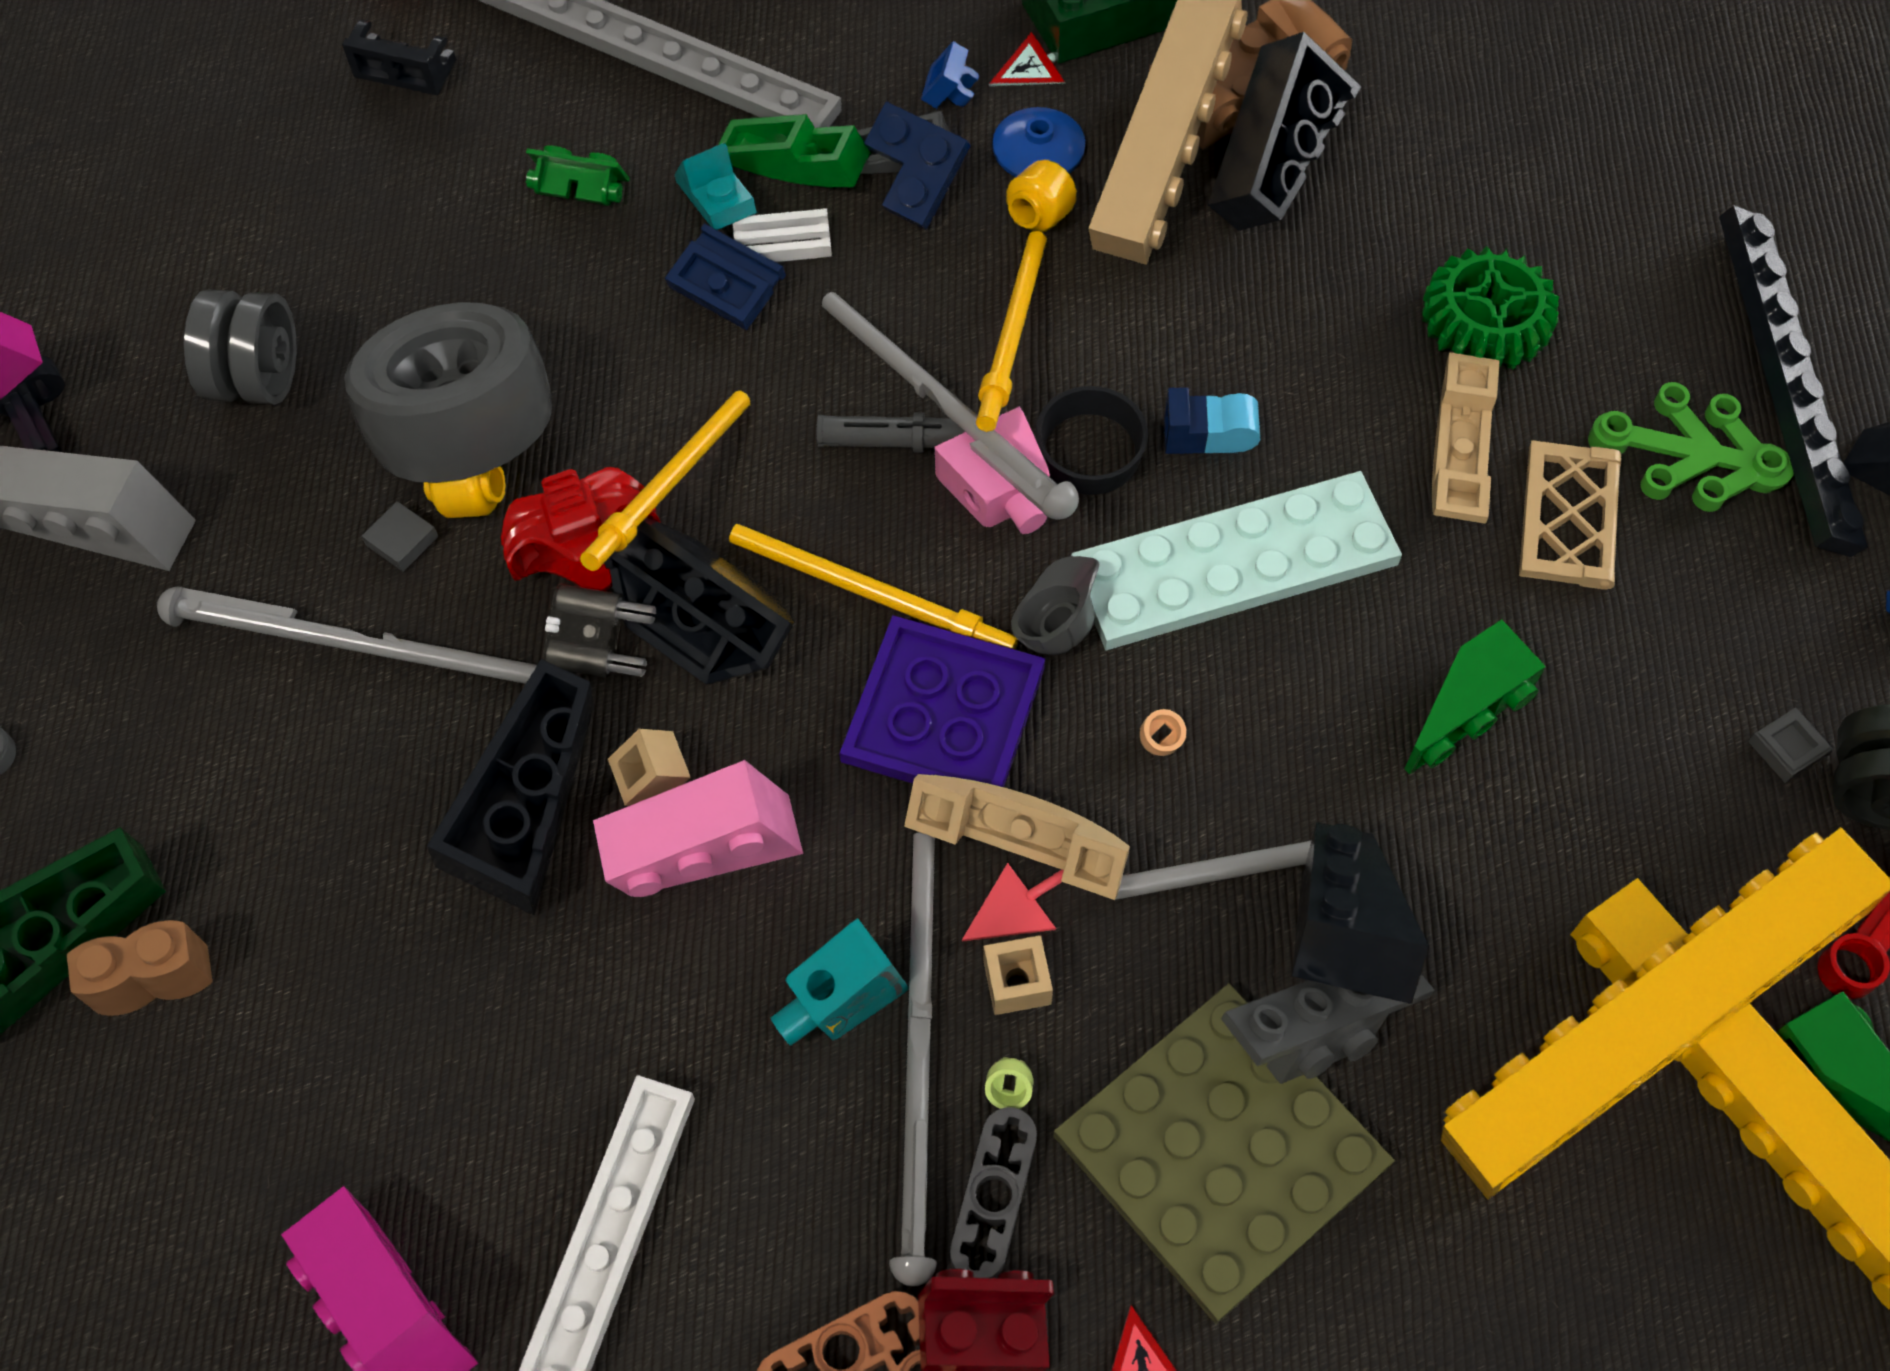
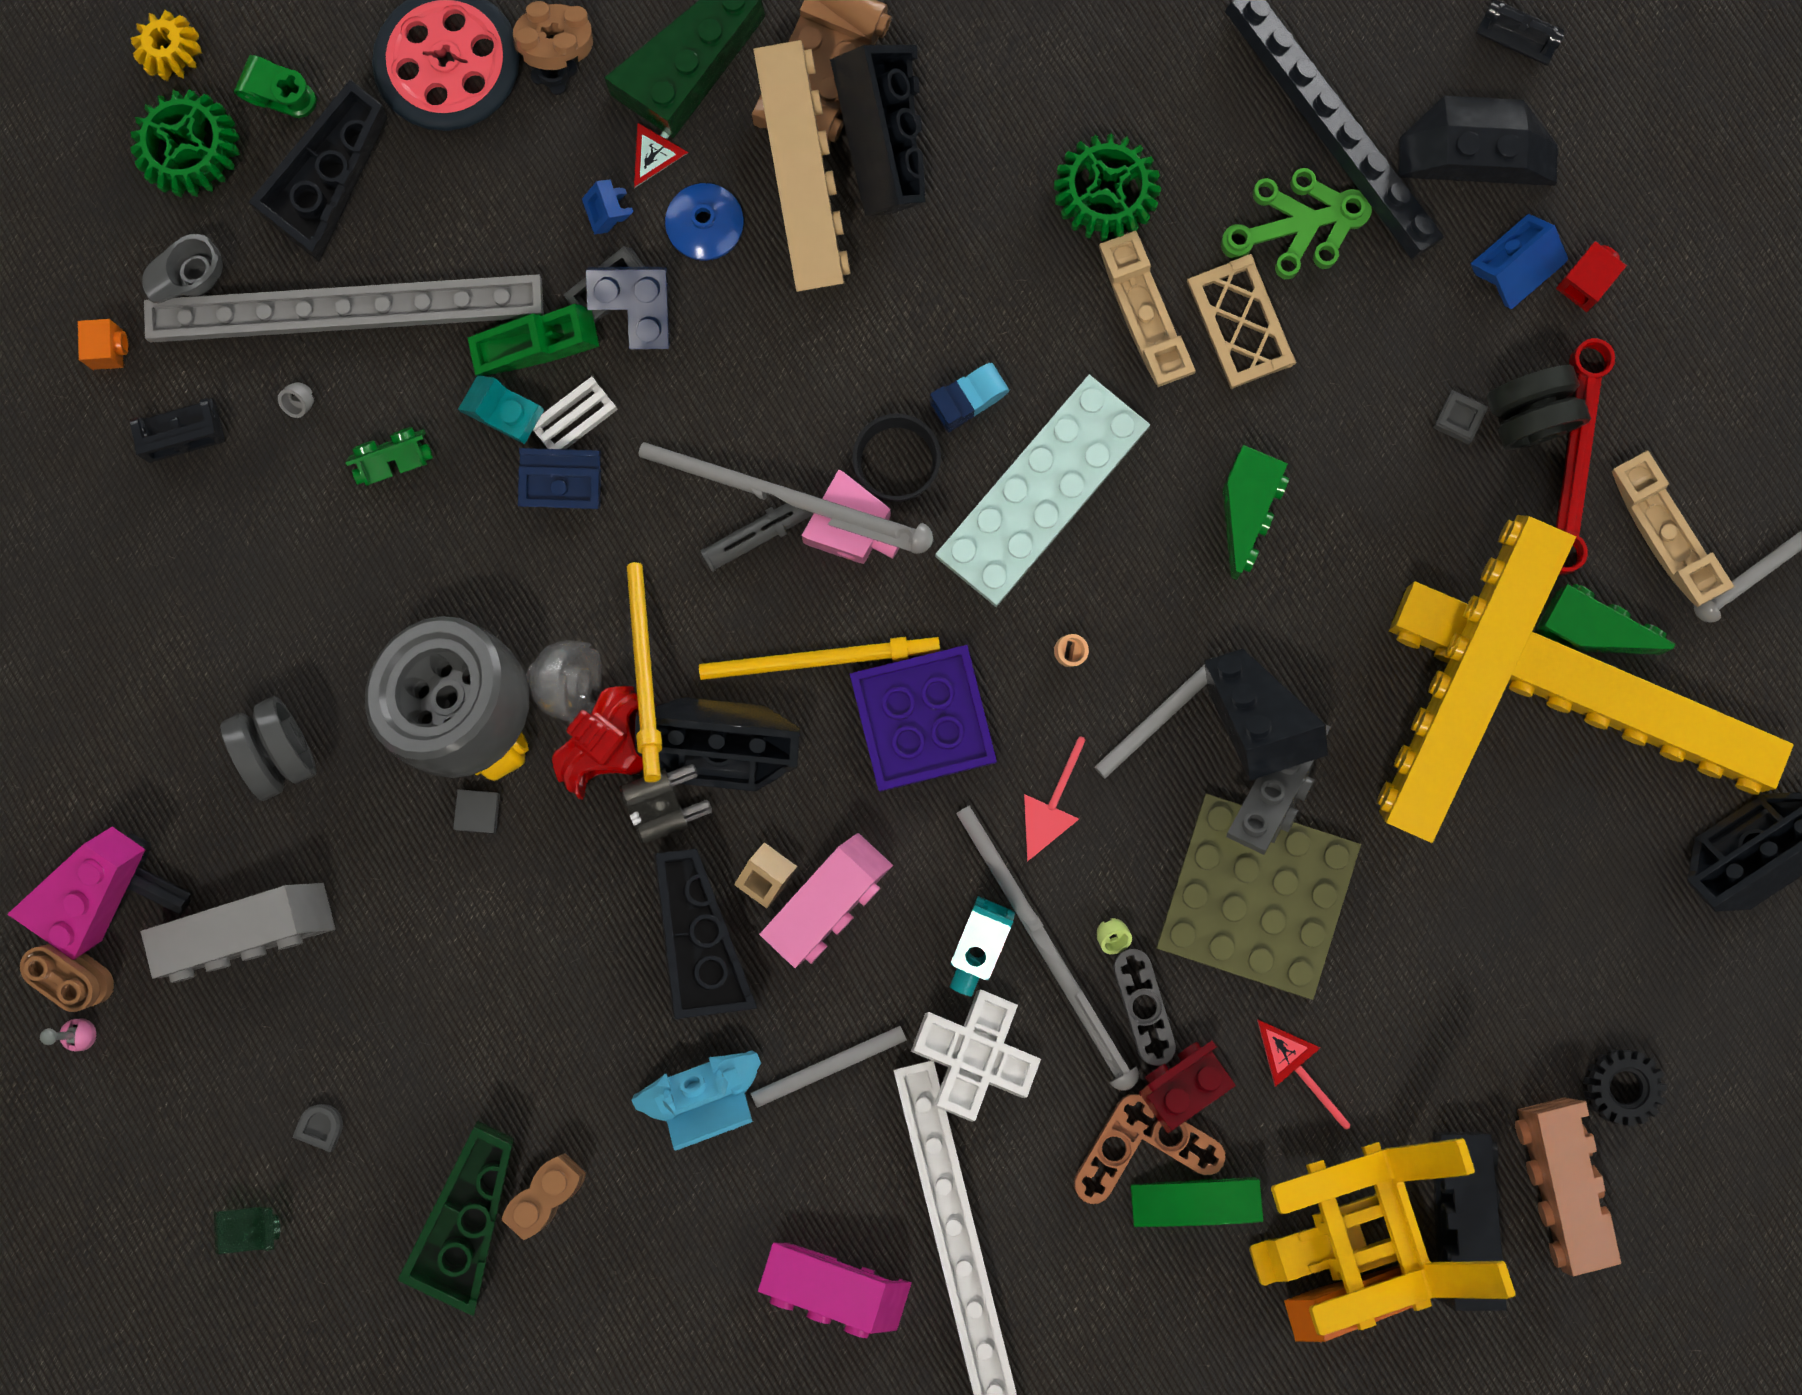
camera: 30 degrees left, 20 degrees up
(184, 603) = (444, 922): light grey bar -> none
(369, 985) = (702, 1099): none -> medium azure piece
(519, 83) = (296, 405): none -> light grey hinge
(568, 1030) = (828, 1066): none -> light grey bar
(587, 439) = (565, 678): none -> clear cylinder
(746, 1119) = (975, 1055): none -> white plate
(997, 385) = (819, 470): yellow bar -> none
(1019, 824) = (1021, 769): tan slope -> none
(1021, 958) = (1094, 868): tan plate -> none
(1041, 195) = (740, 275): yellow head -> none
(1058, 607) = (951, 602): dark grey piece -> none

